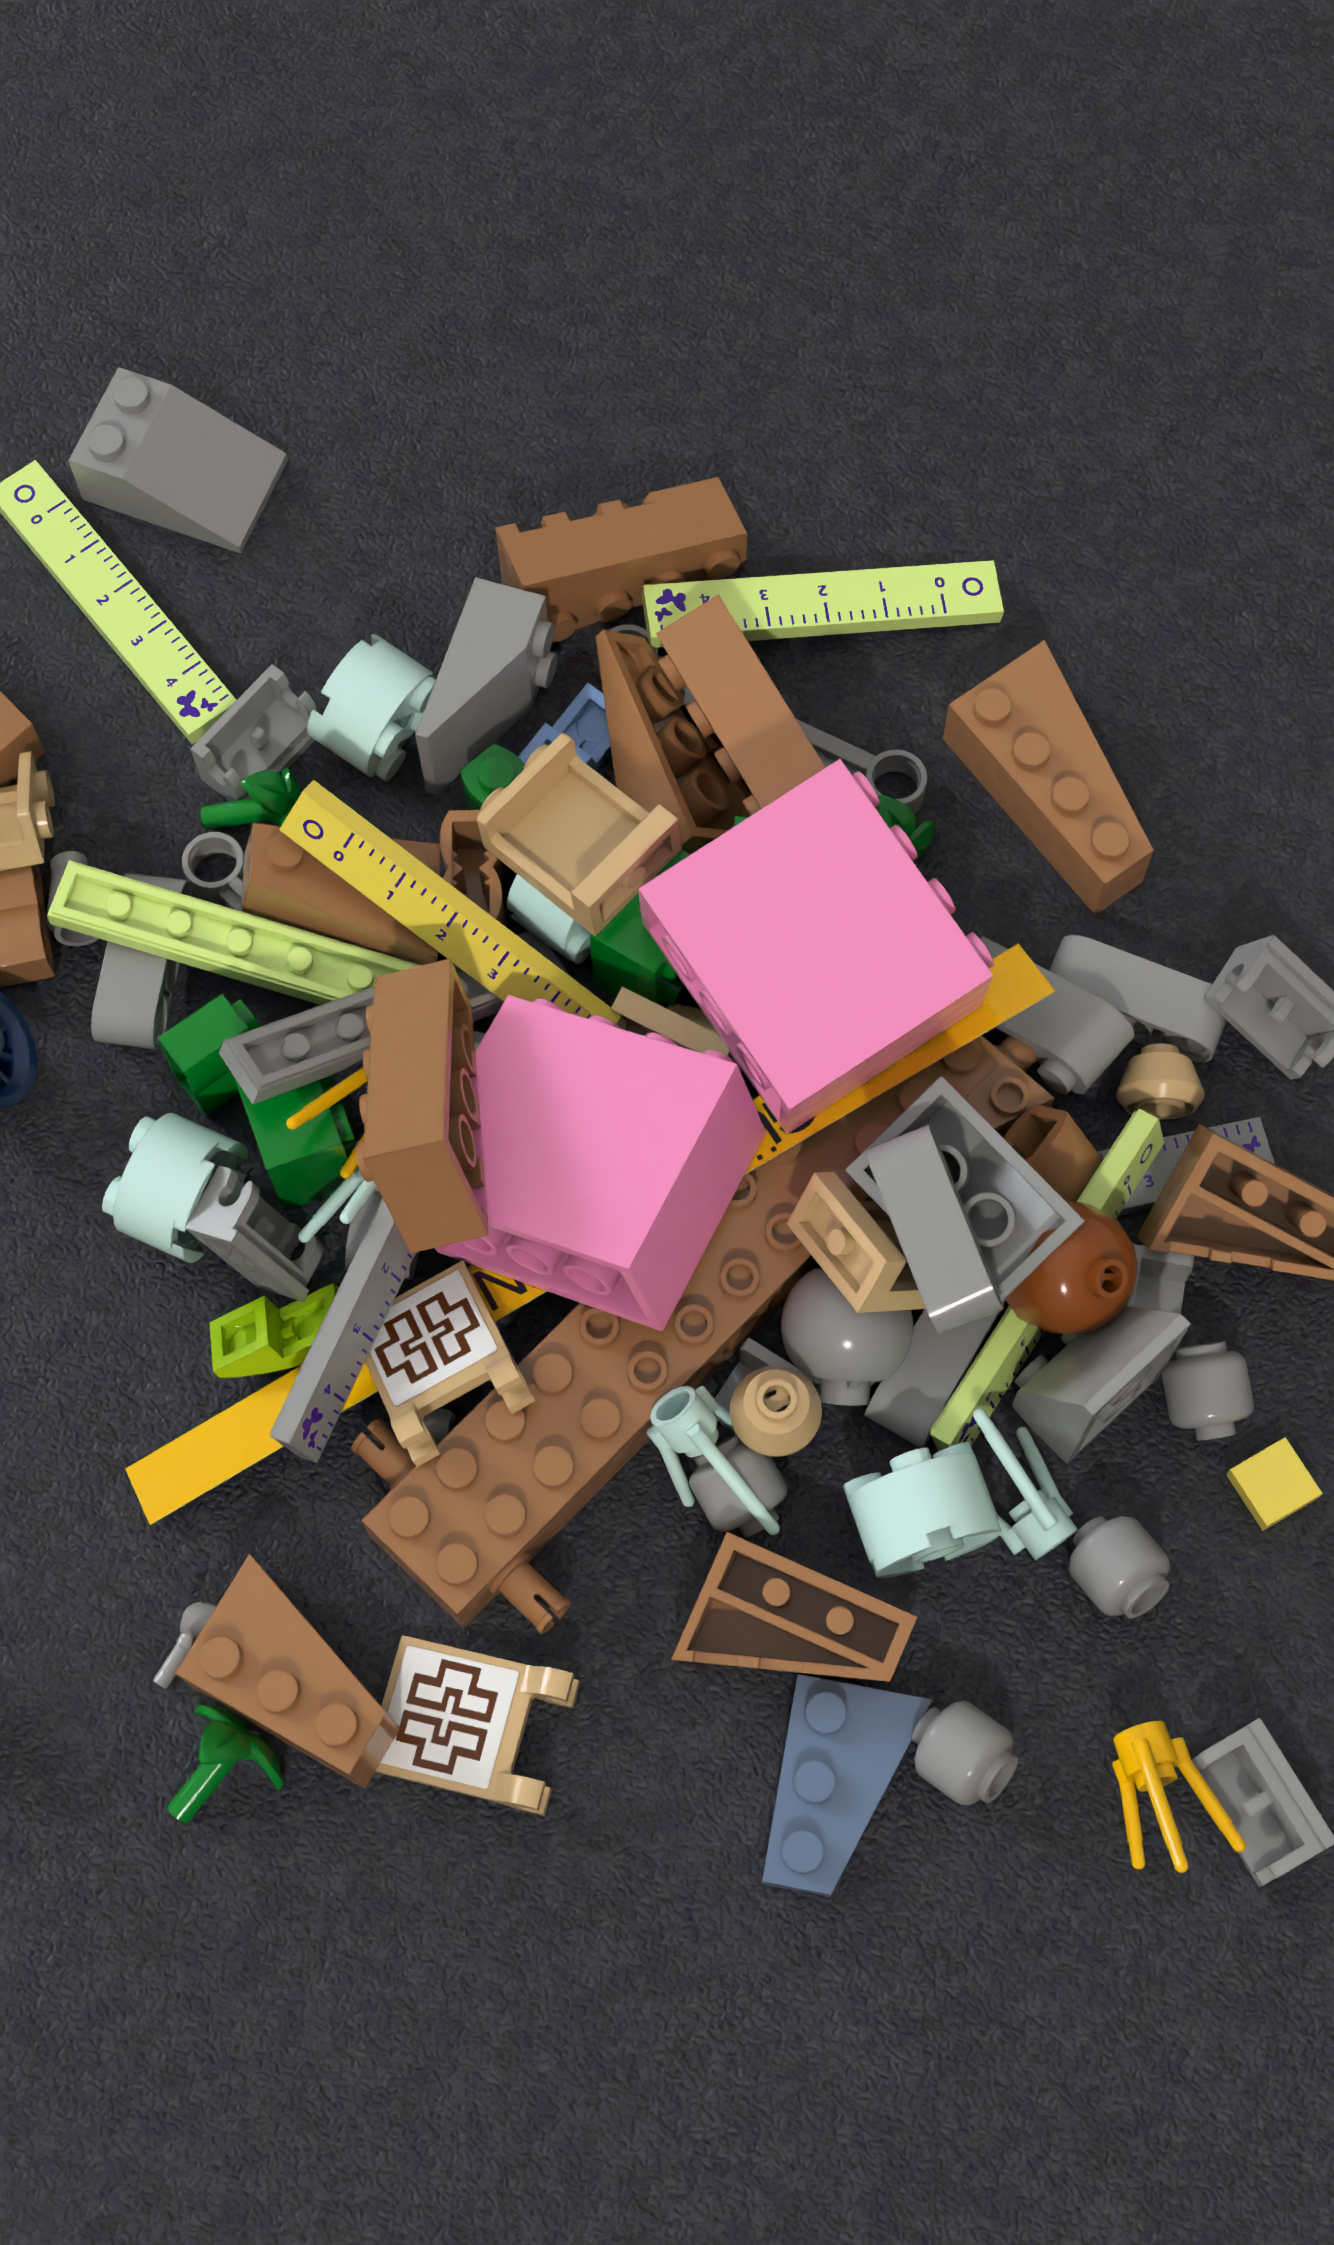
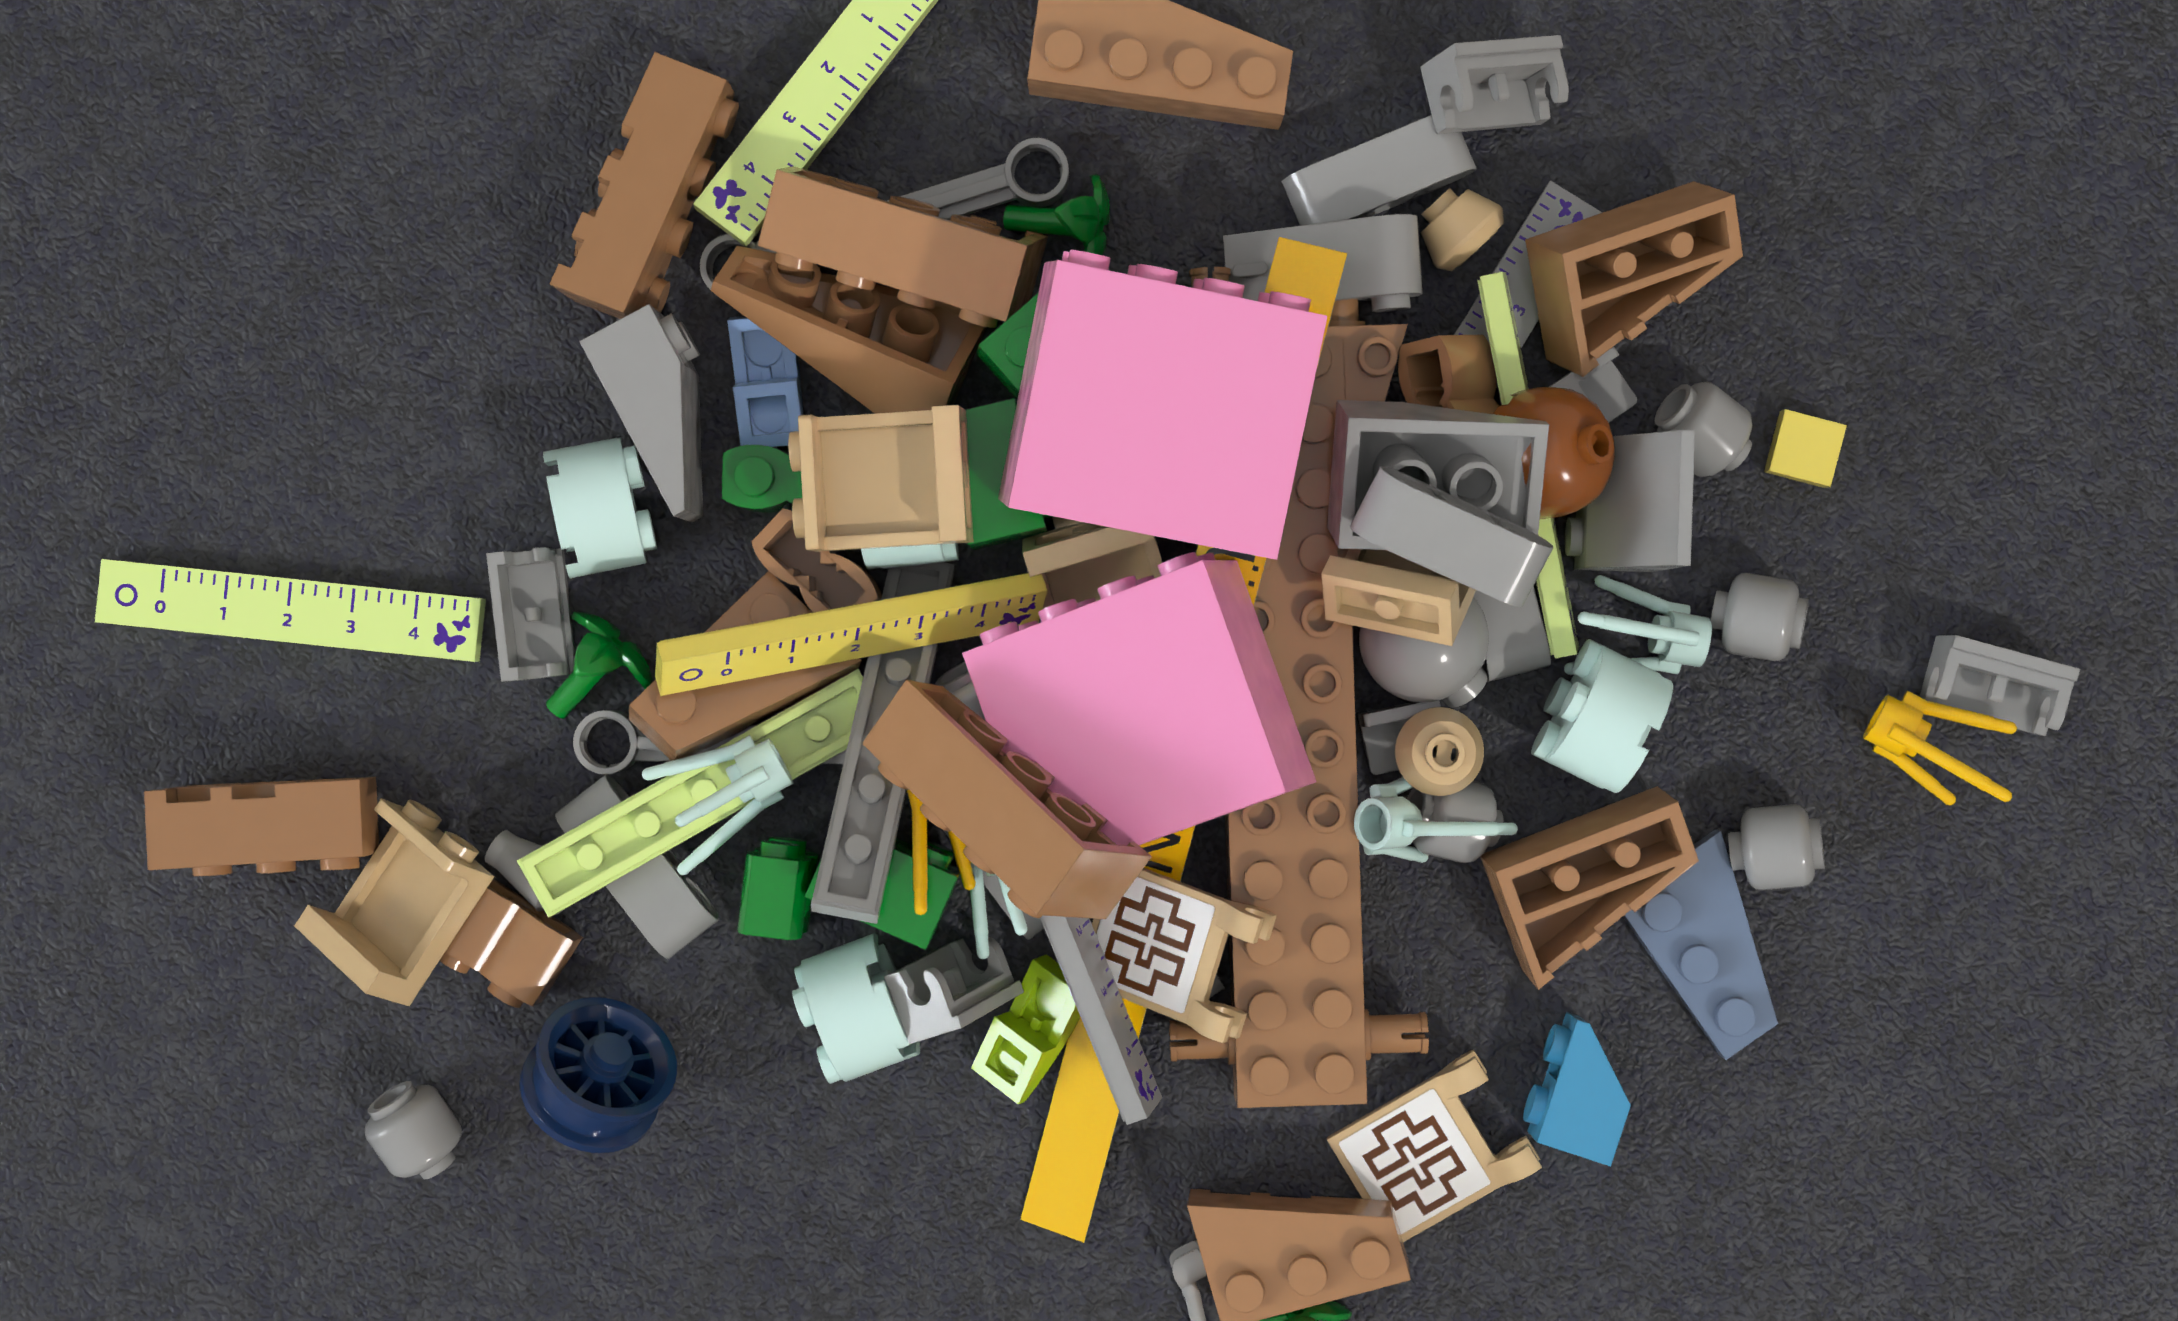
camera: 45 degrees left, 20 degrees up
(174, 462) = (215, 452): light grey slope -> none
(284, 952) = (756, 774): none -> light aqua plant
(620, 1793) = (1580, 1099): none -> dark azure slope

